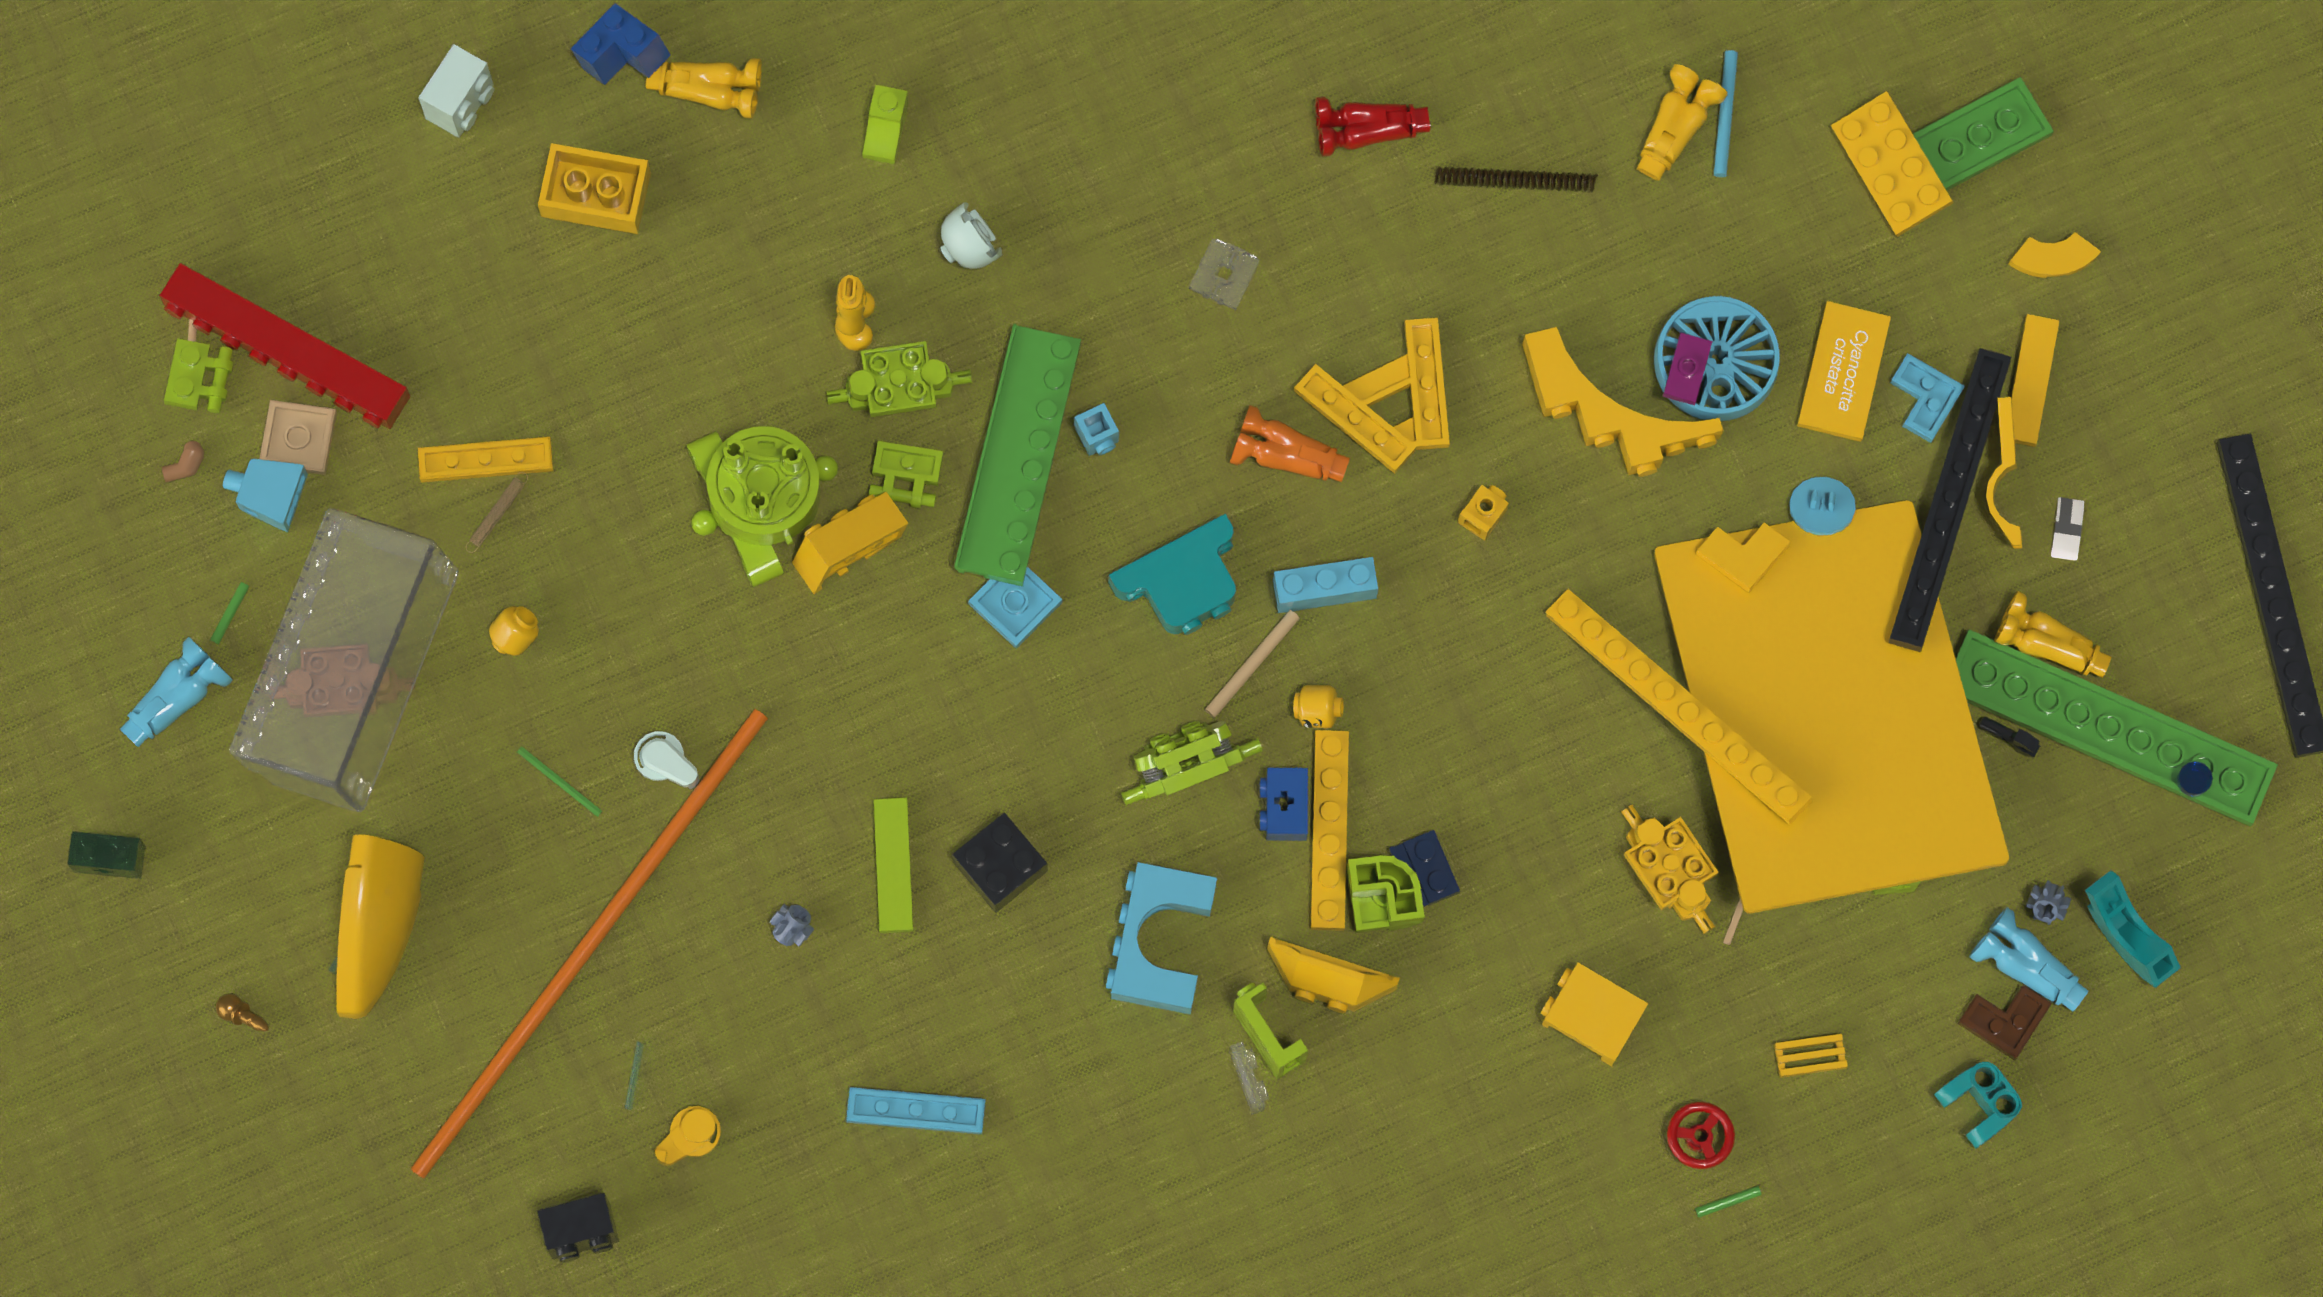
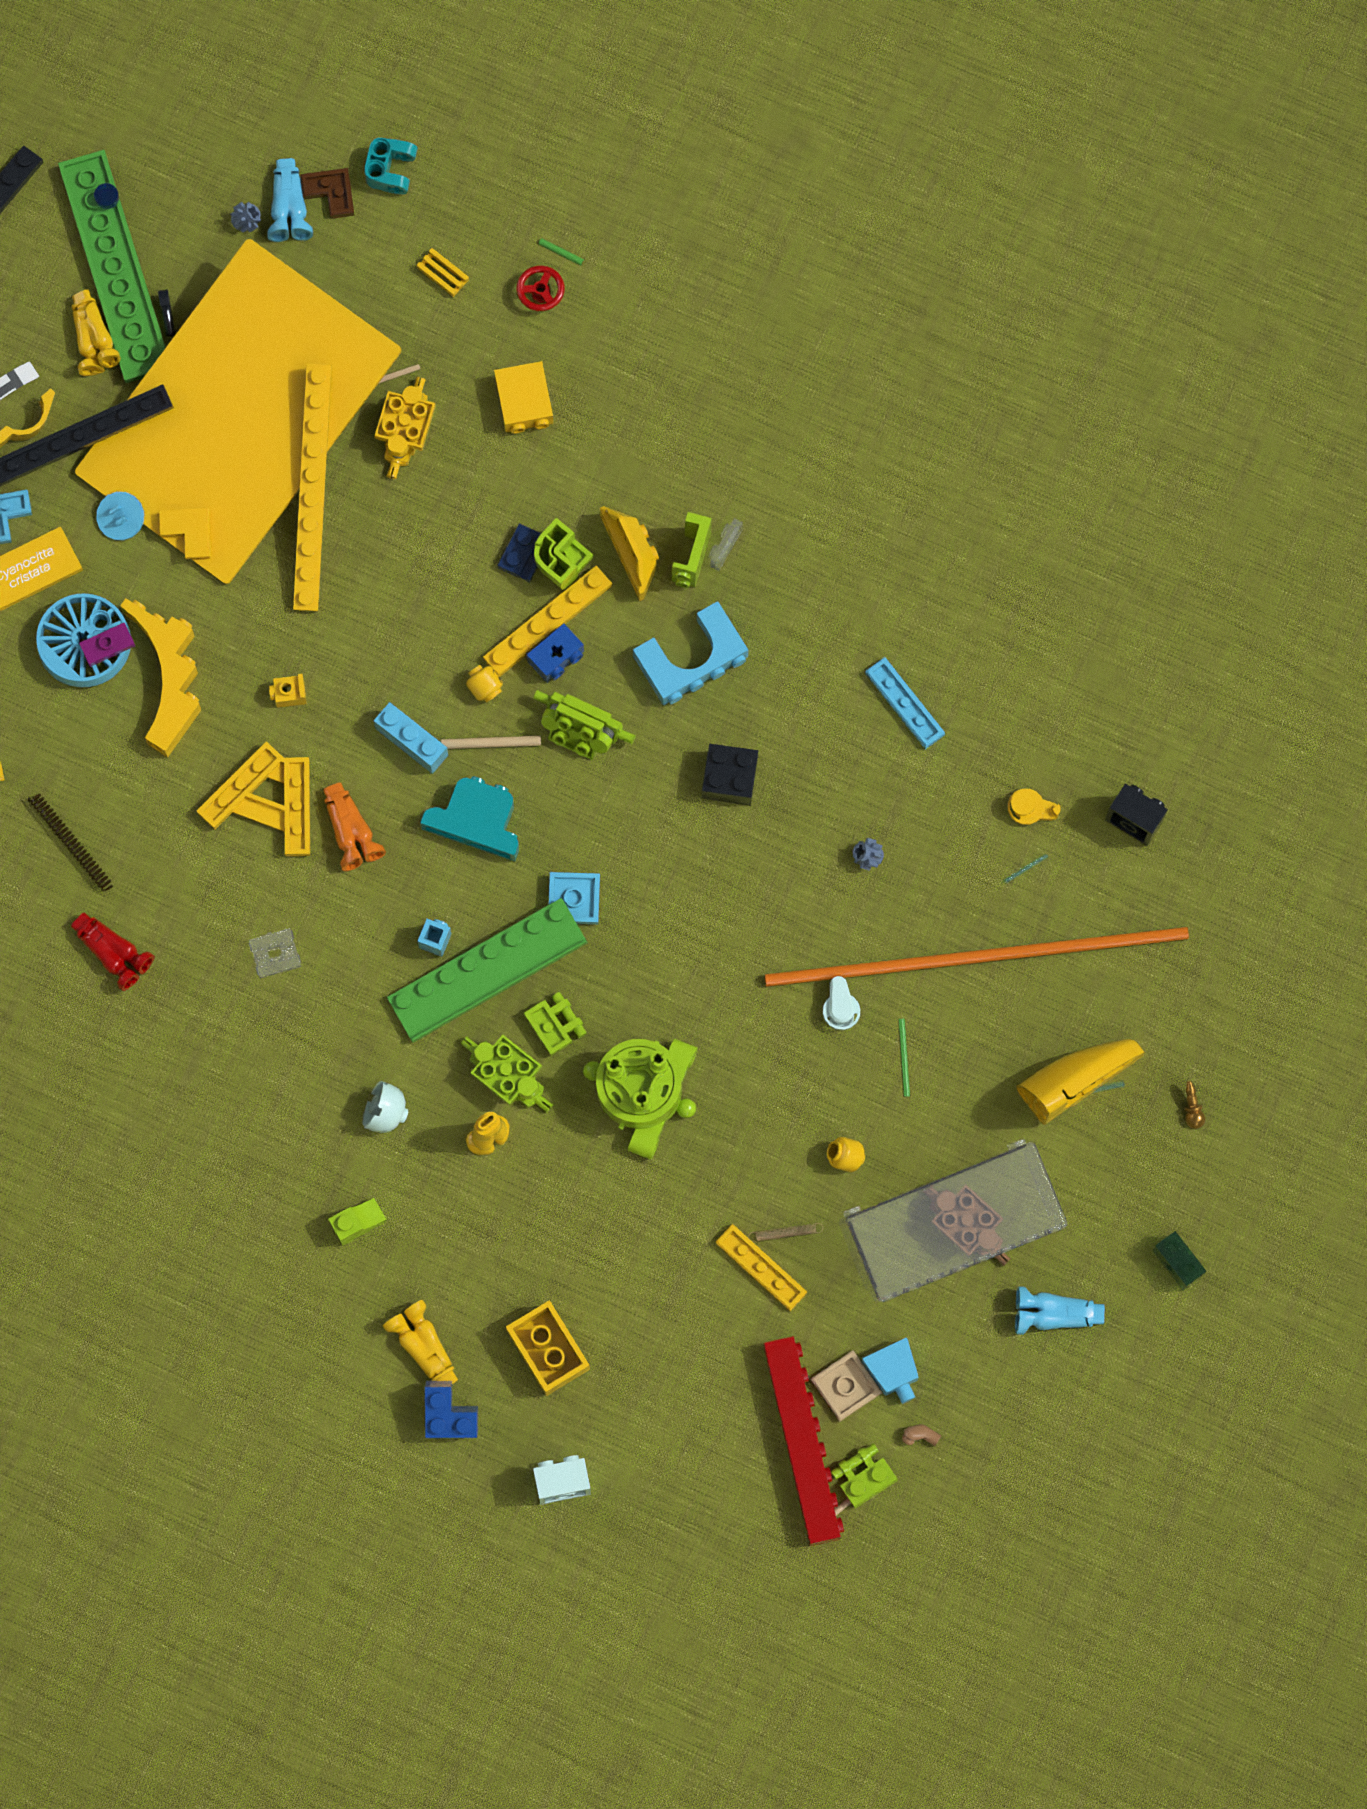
camera: 130 degrees left, 0 degrees up
(229, 613) = (981, 1329): bright green piece -> none
(847, 539) = (623, 1016): yellow wedge -> none
(893, 865) = (782, 833): lime tile -> none
(2128, 933) = (225, 160): teal arch -> none

